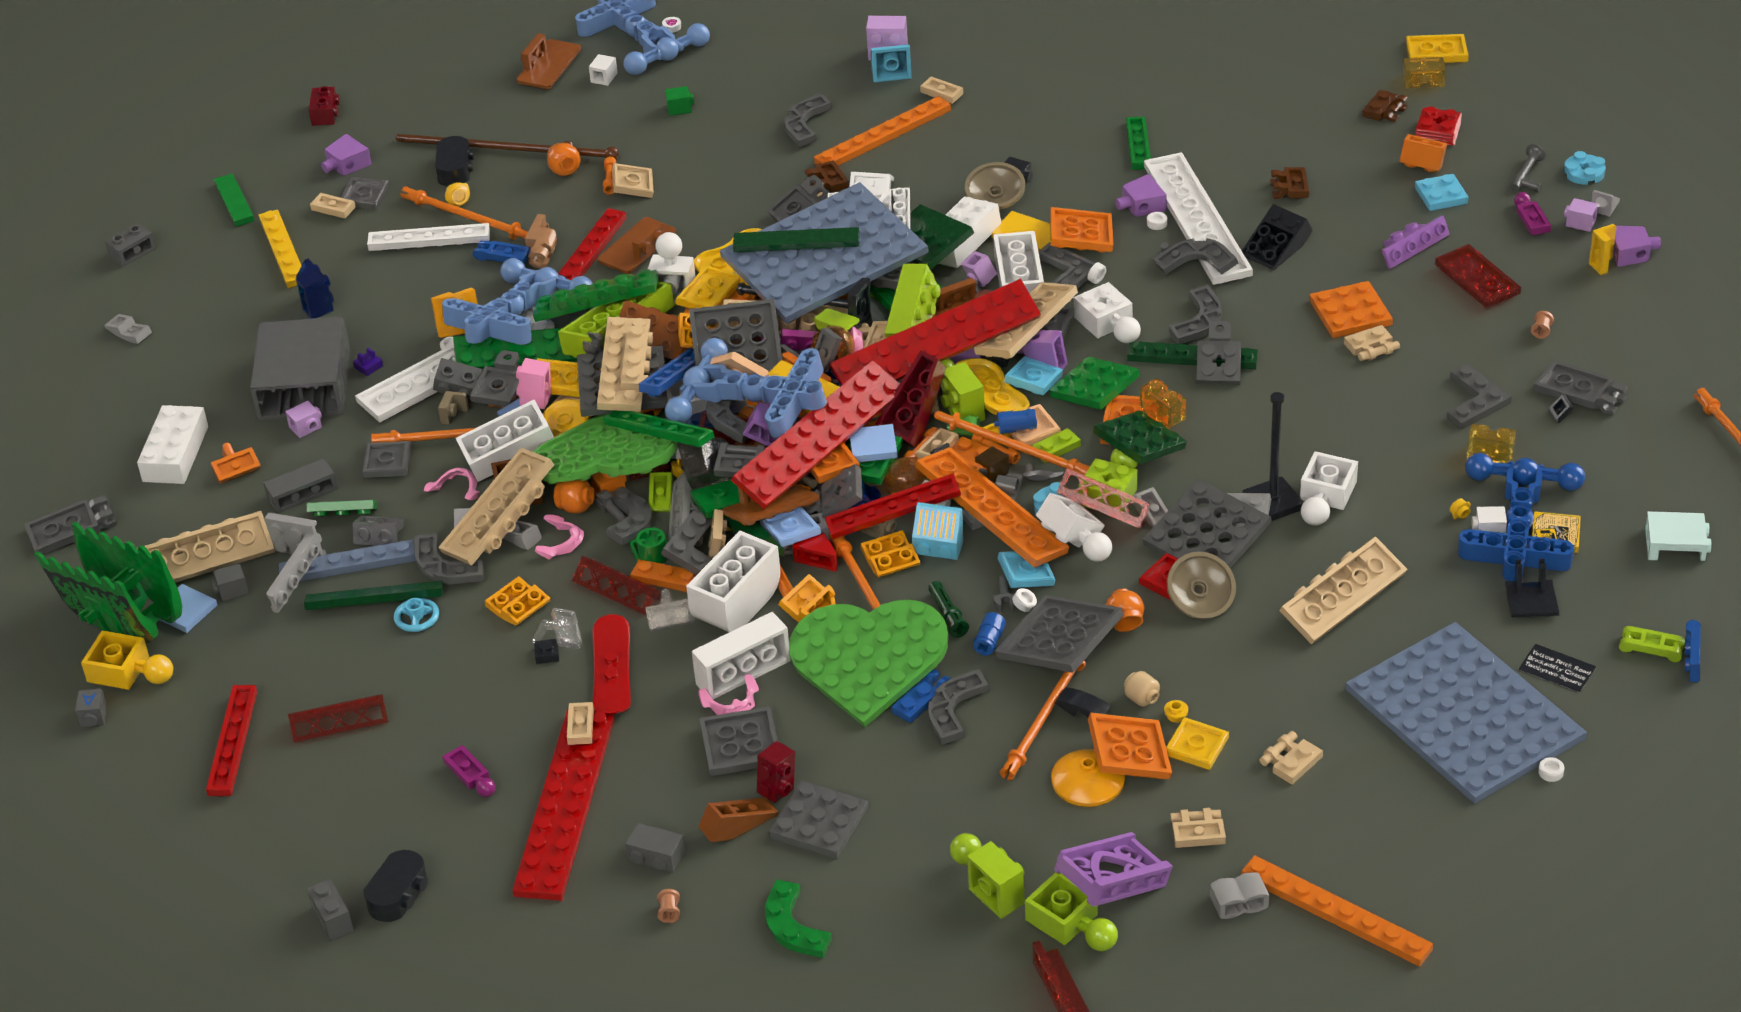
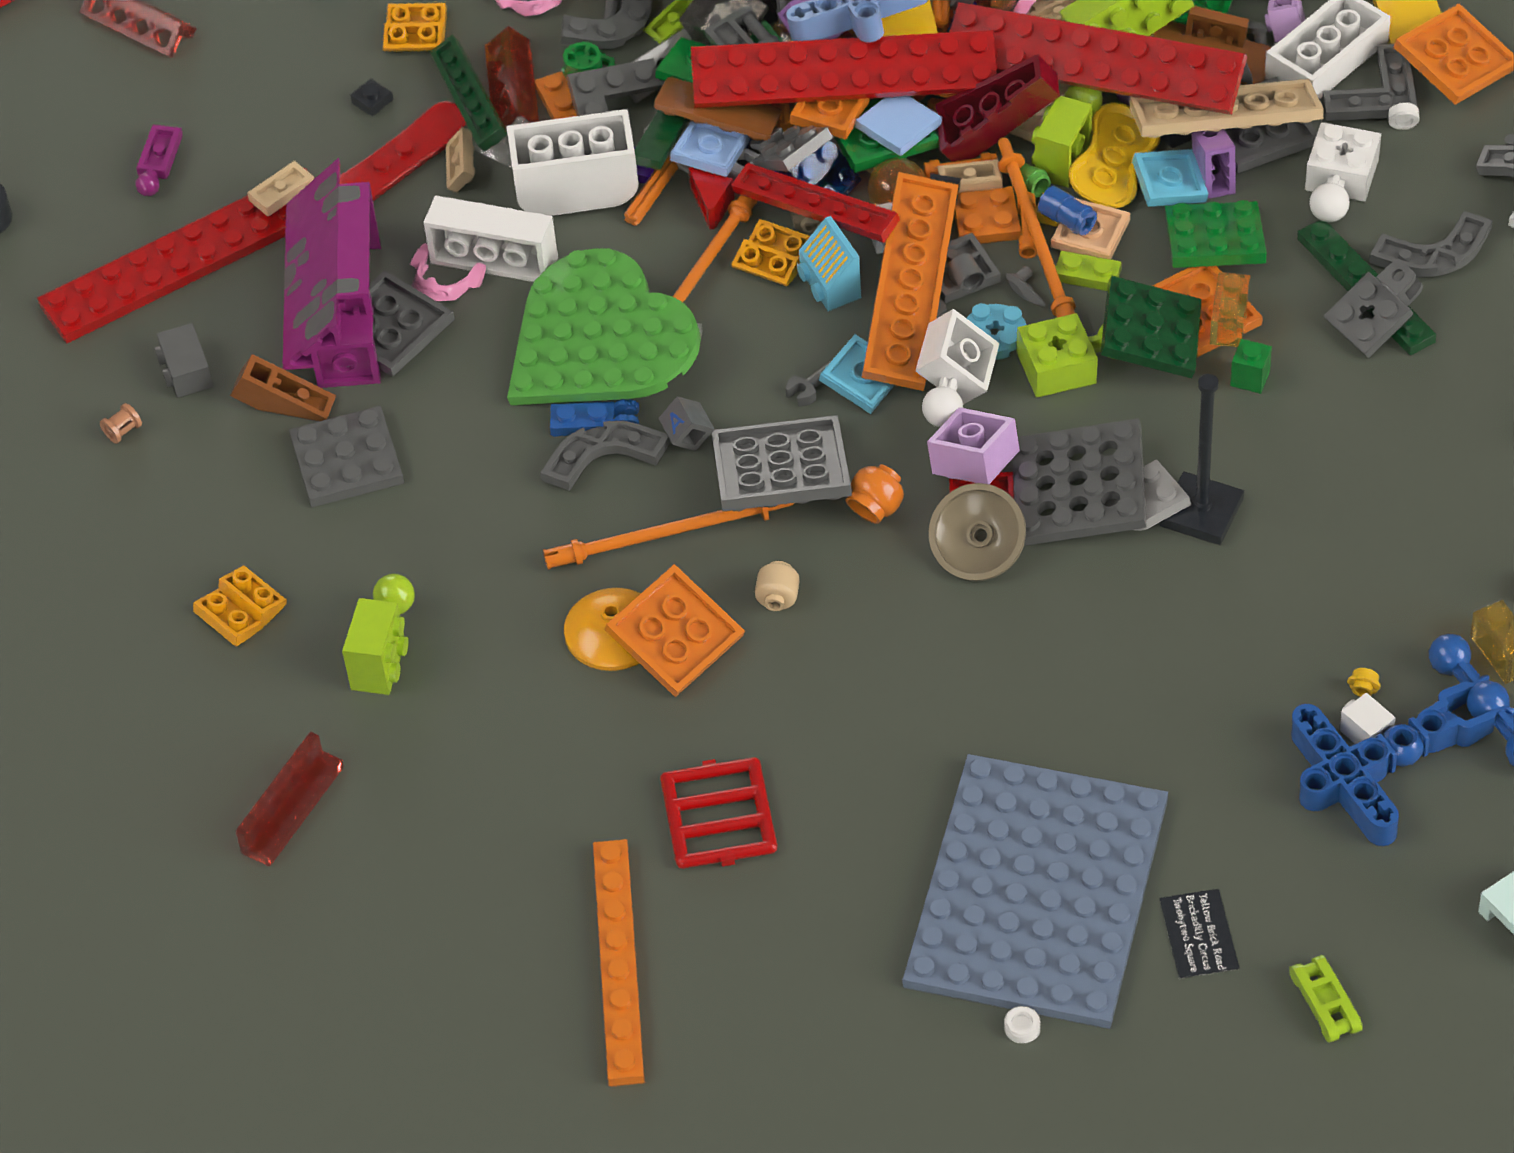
camera: 50 degrees right, 10 degrees up
(565, 627) = (407, 86): clear plate -> none
(612, 601) = (468, 93): none -> dark green plate
(653, 638) = (459, 160): none -> tan plate
(683, 734) = (328, 281): none -> magenta panel
(717, 539) = (640, 100): tan plate -> none
(775, 771) = (355, 376): dark red brick -> none
(785, 929) = (184, 521): green plate -> none
(806, 598) = (637, 235): light orange slope -> none
(880, 931) = (239, 605): none -> light orange slope
(950, 613) = (731, 360): dark green pin -> none
(979, 656) = (686, 423): none -> dark grey brick
(989, 633) = (734, 408): blue piece -> none
(995, 462) = (974, 236): dark brown panel -> none
(1024, 600) = (814, 403): white tile -> none
(1063, 912) = (389, 732): lime brick -> none
(1075, 700) = (706, 553): black slope -> none
(1082, 862) = (498, 712): medium lavender fence -> none
(1104, 507) = (1016, 363): clear red fence -> none
(1142, 550) = (973, 446): none -> lavender brick
(1156, 509) = (1074, 408): light grey slope -> none
(1176, 710) = (782, 643): yellow plate -> none
(1197, 743) = (750, 686): yellow tile -> none
(1198, 828) = (615, 771): tan plate -> none
(1202, 422) = (1251, 366): none -> green brick
(1239, 895) = (553, 862): light grey brick -> none
(1273, 832) = (724, 855): none -> red bar
(1296, 761) = (808, 789): tan plate -> none
(1326, 484) = (1264, 532): white brick -> none
(1342, 589) = (1107, 659): tan plate -> none
(1531, 598) = (1285, 837): black plate -> none
(1557, 527) = (1426, 794): tile -> none
(1693, 643) = (1351, 1045): blue hinge -> none

